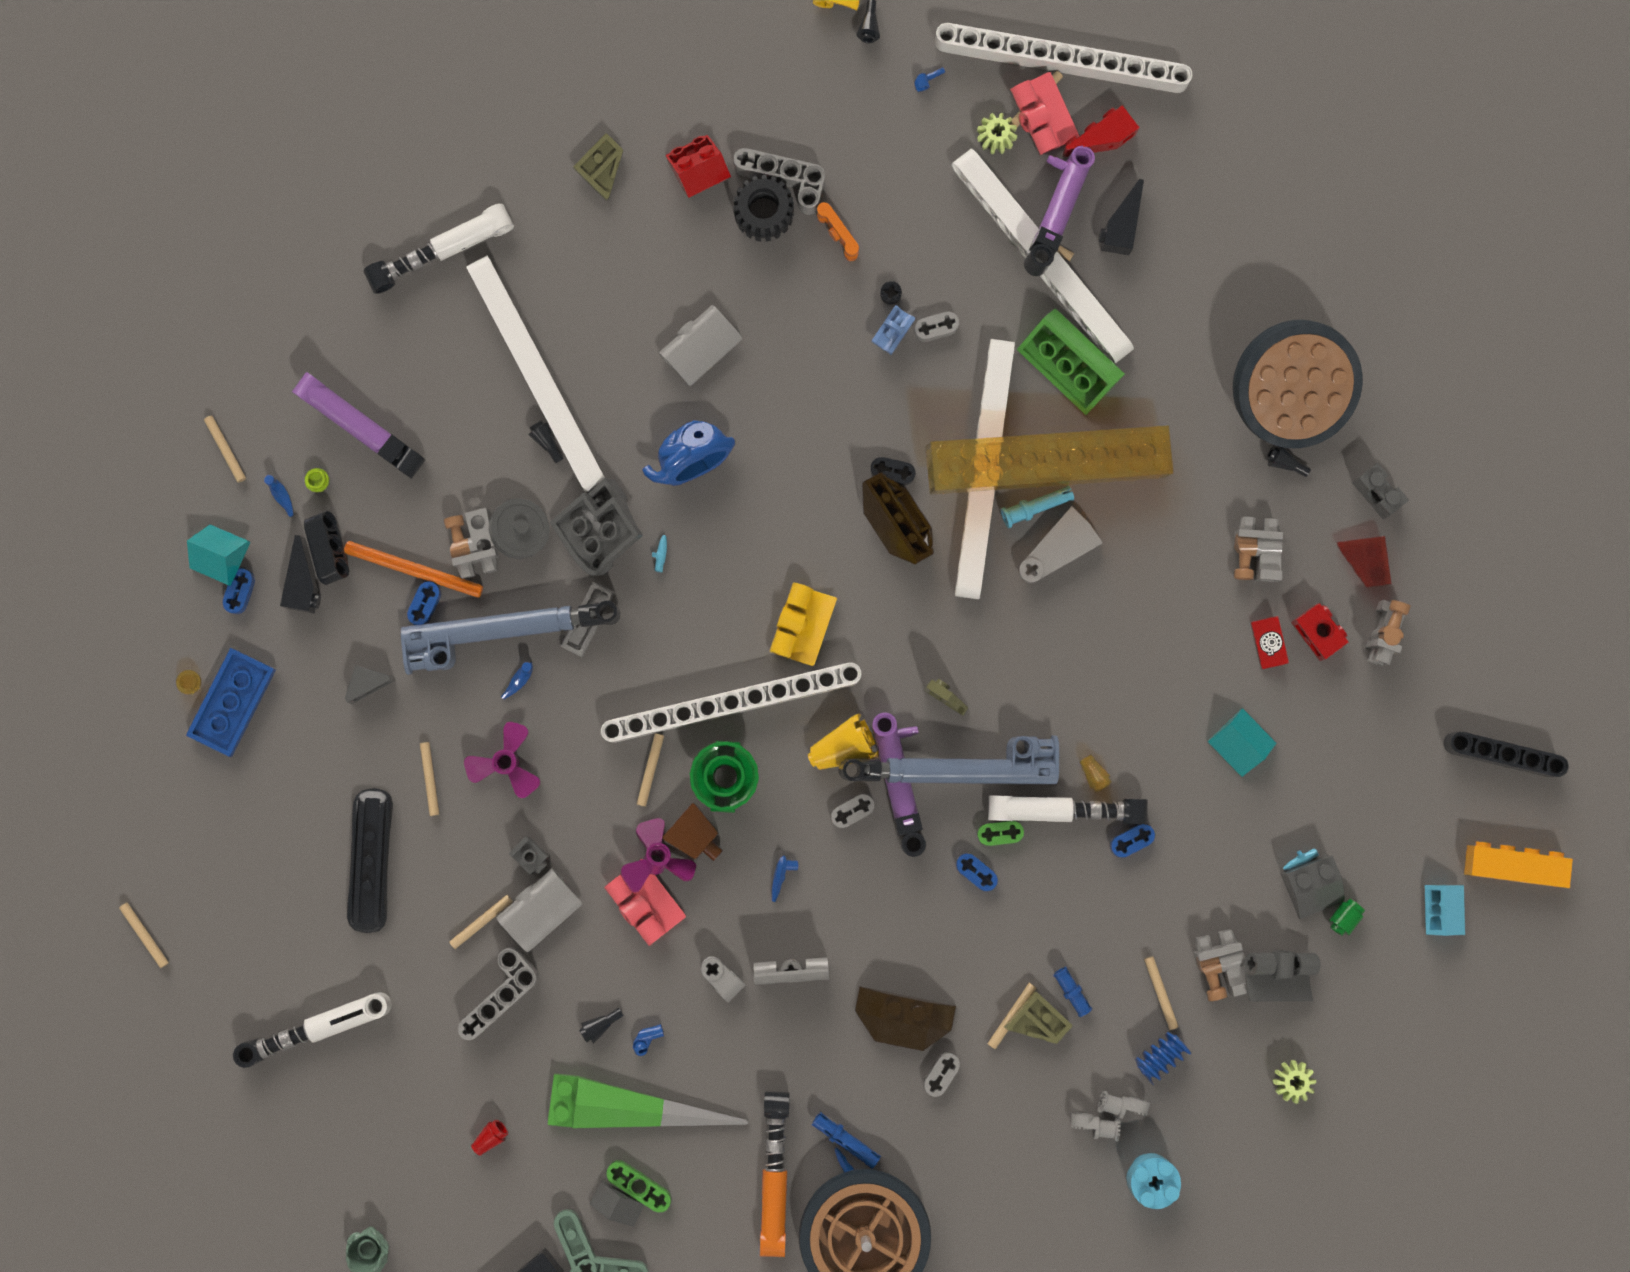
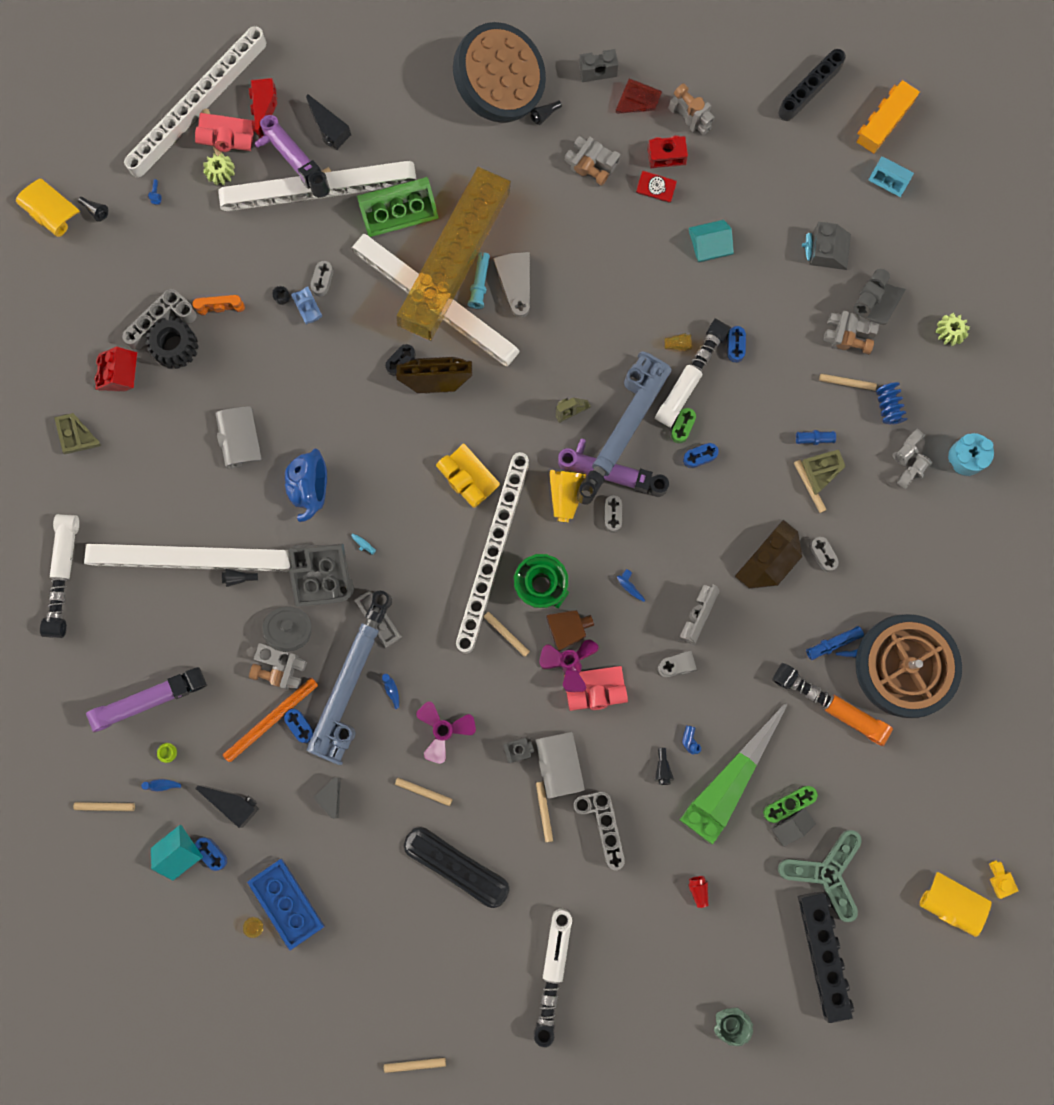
camera: 55 degrees left, 5 degrees down
(326, 547) = (218, 772): black beam -> none
(1346, 917) = (863, 238): green brick -> none

